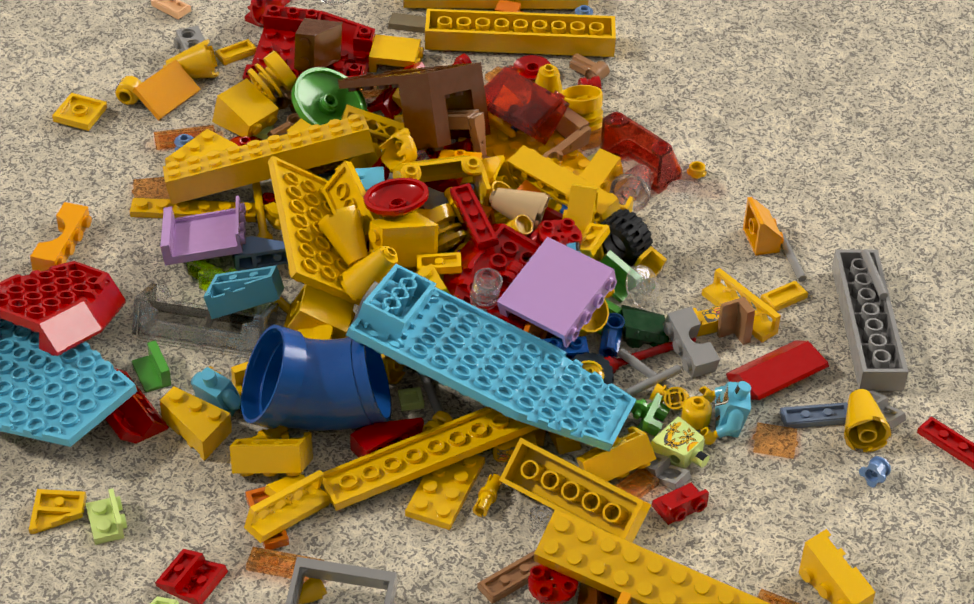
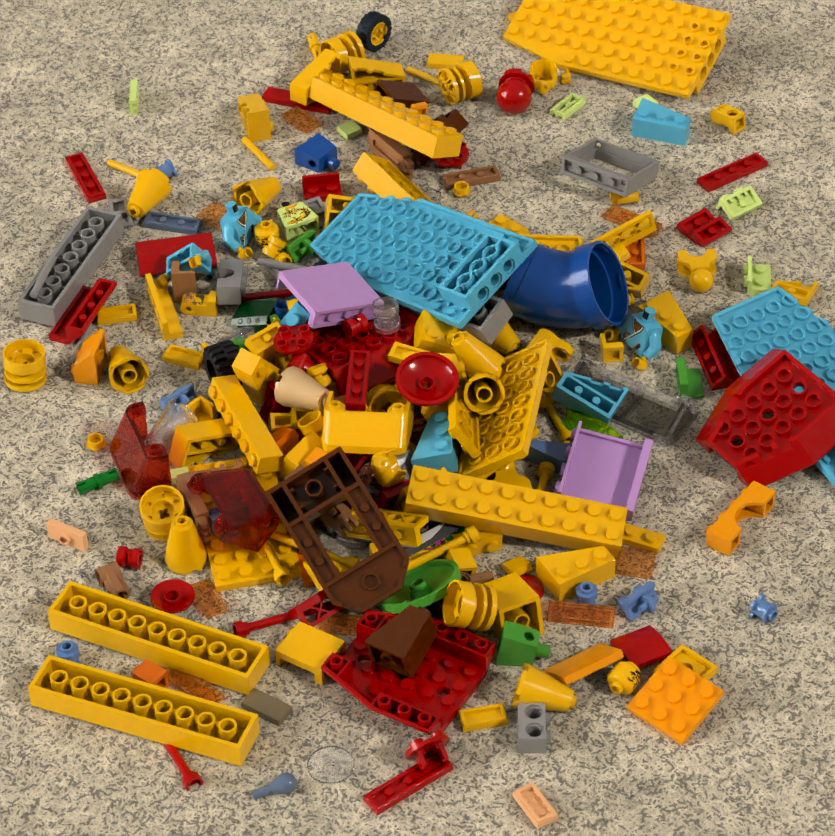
camera: 155 degrees left, 0 degrees up
(22, 168) = (763, 609): none -> medium blue brick
(81, 84) = (675, 700): none -> light orange plate
(123, 120) = (642, 646): none -> red slope
(132, 148) = (641, 600): none -> medium blue hips
(180, 504) = (697, 269): none -> yellow piece
(220, 82) = (519, 645): none -> bright green torso
(515, 544) = (461, 189): none -> yellow plate
(654, 90) = (67, 534): none -> light nougat plate
(655, 214) = (182, 395): none -> medium blue hips
(672, 134) = (97, 481): none -> green pin
(682, 270) = (183, 357): none -> yellow tile
(717, 546) = (317, 154): none -> blue torso
(724, 229) = (126, 370): none -> yellow cone
(741, 335) = (191, 259): none -> medium azure torso
(744, 457) = (256, 193): none -> yellow cone
(783, 534) = (258, 153): none -> yellow bar
(815, 202) = (24, 365): none -> yellow wheel
(815, 280) = (82, 311): none -> red slope
(923, 472) = (121, 167): none -> yellow bar

